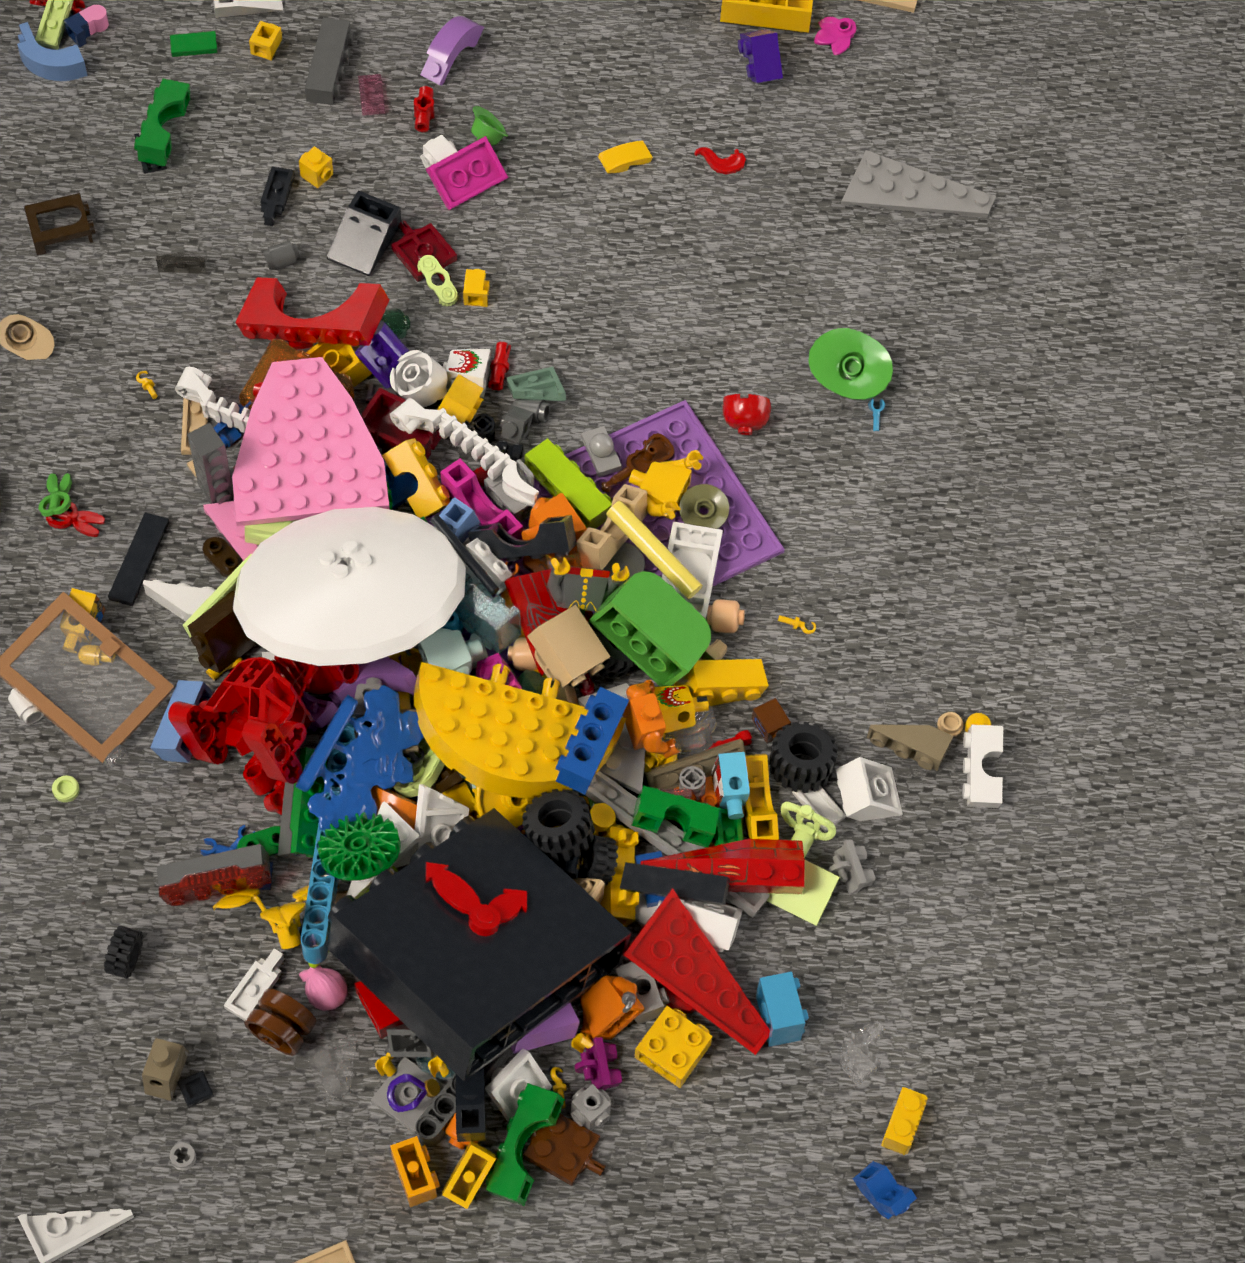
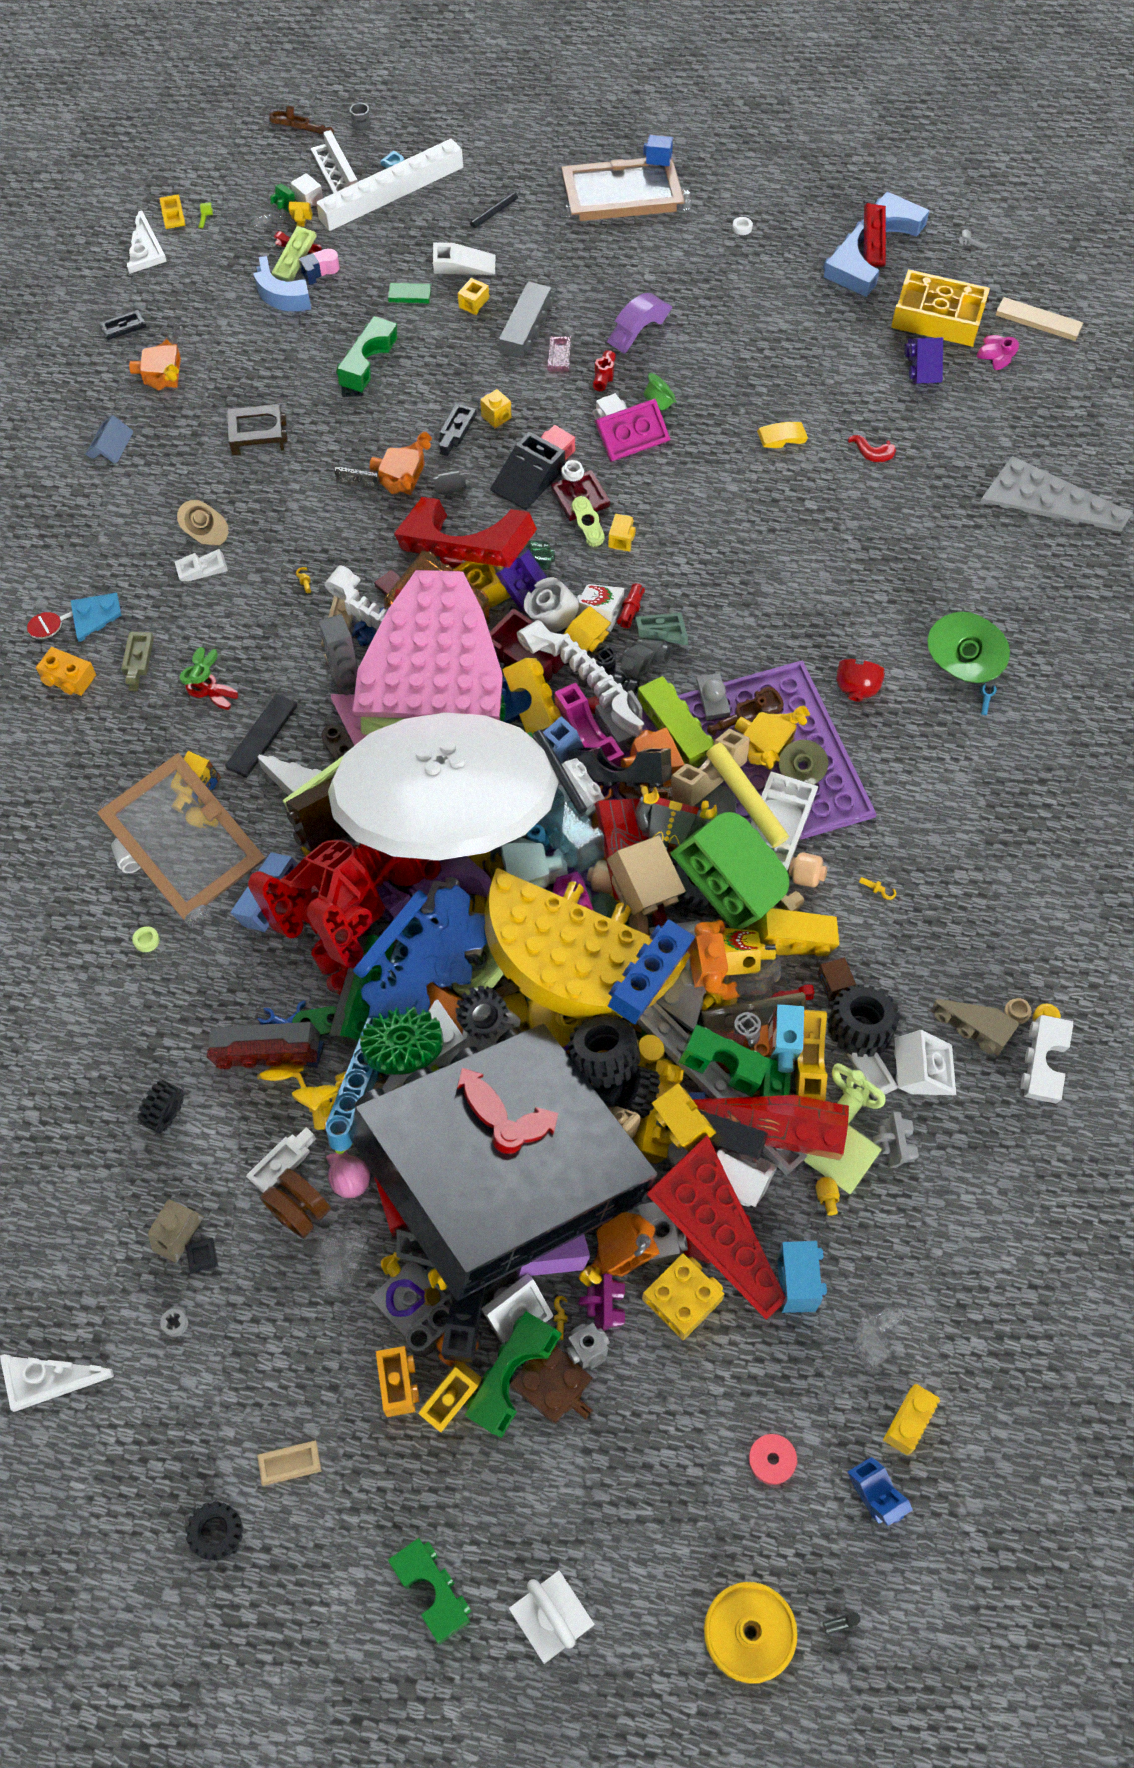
camera: 15 degrees right, 0 degrees up
(27, 387) = (193, 567): none -> white slope
(227, 245) = (402, 466): none -> orange torso
(238, 376) = (386, 582): none -> tile
(391, 193) = (560, 439): none -> brick
(412, 227) = (572, 470): none -> white plate
(443, 814) = (489, 1024): none -> black tyre
(645, 876) = (683, 1118): none -> yellow brick
(782, 1167) = (782, 1449): none -> coral piece
(795, 927) = (828, 1192): none -> yellow cylinder

